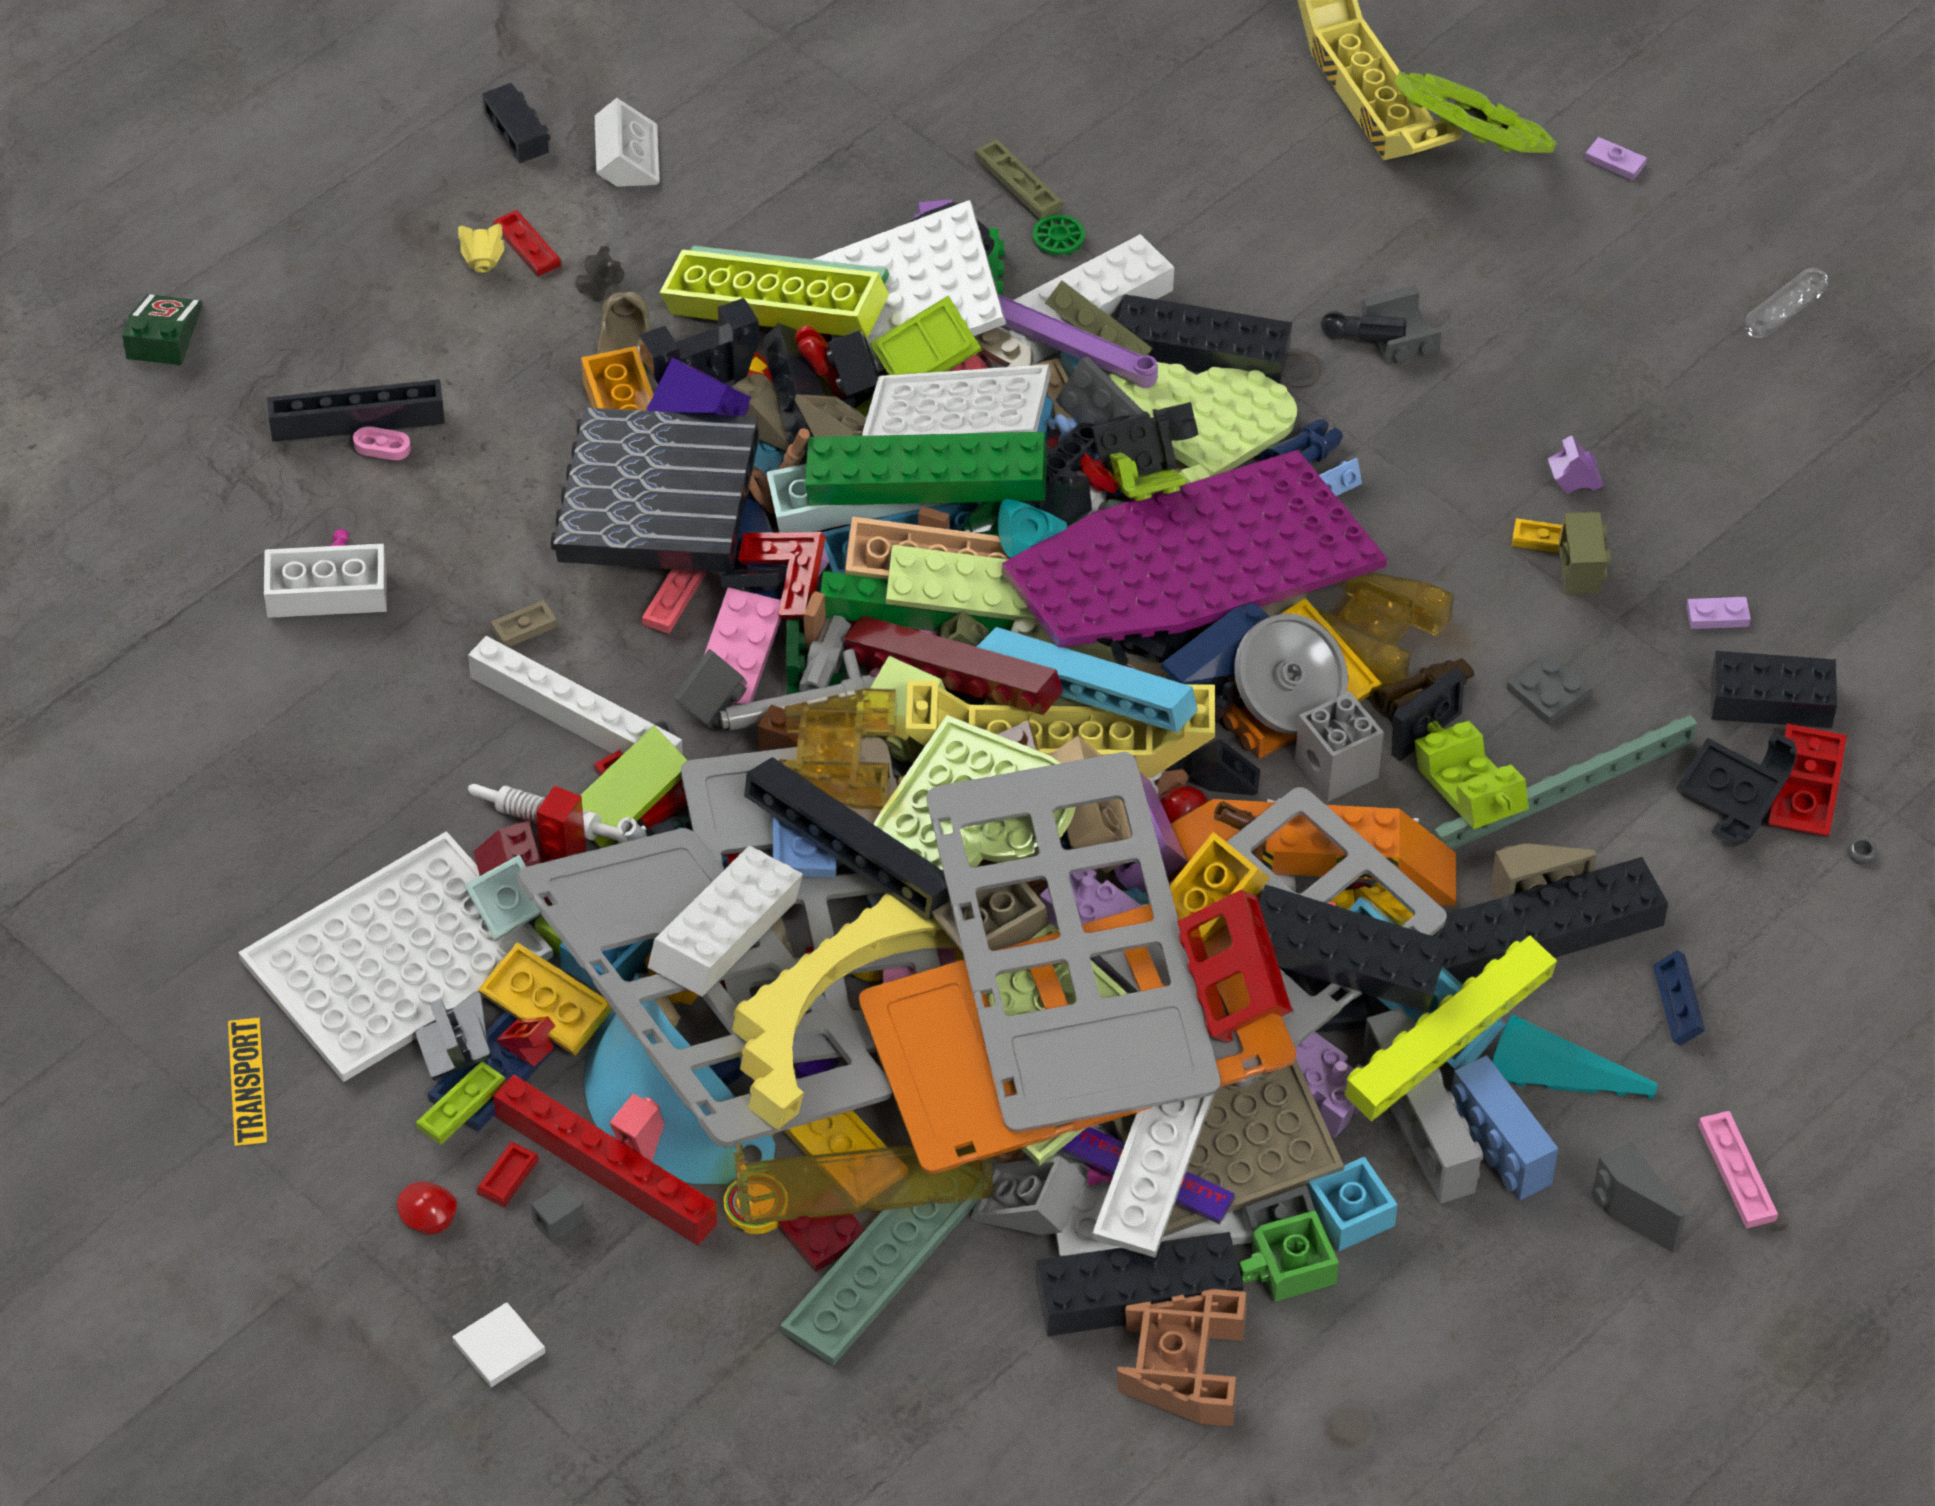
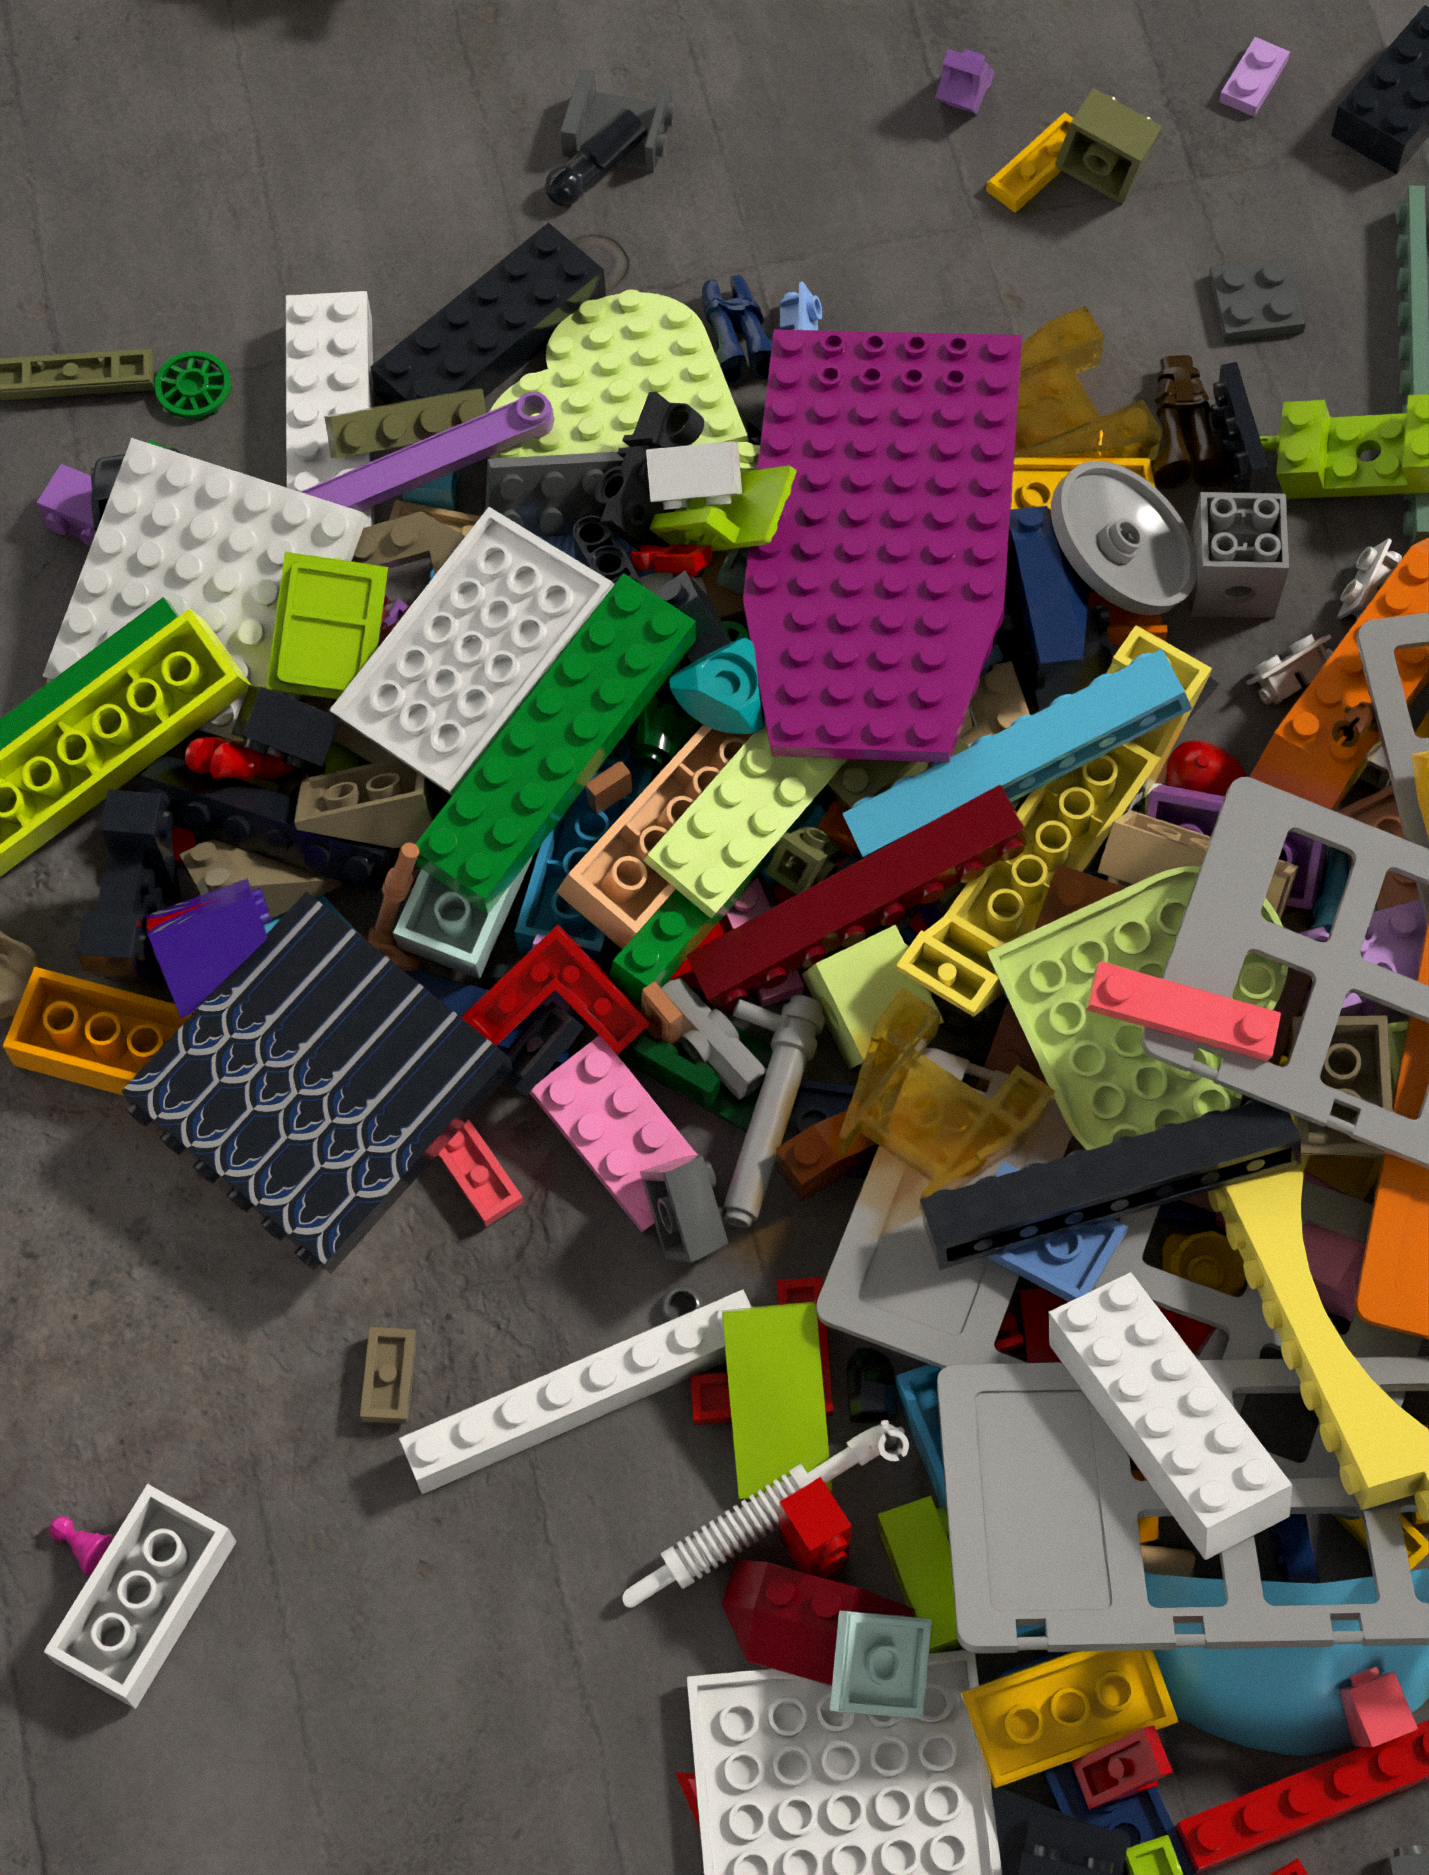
camera: 55 degrees left, 15 degrees up
(961, 795) = (1183, 1011): none -> coral plate
(1150, 443) = (694, 473): none -> white brick

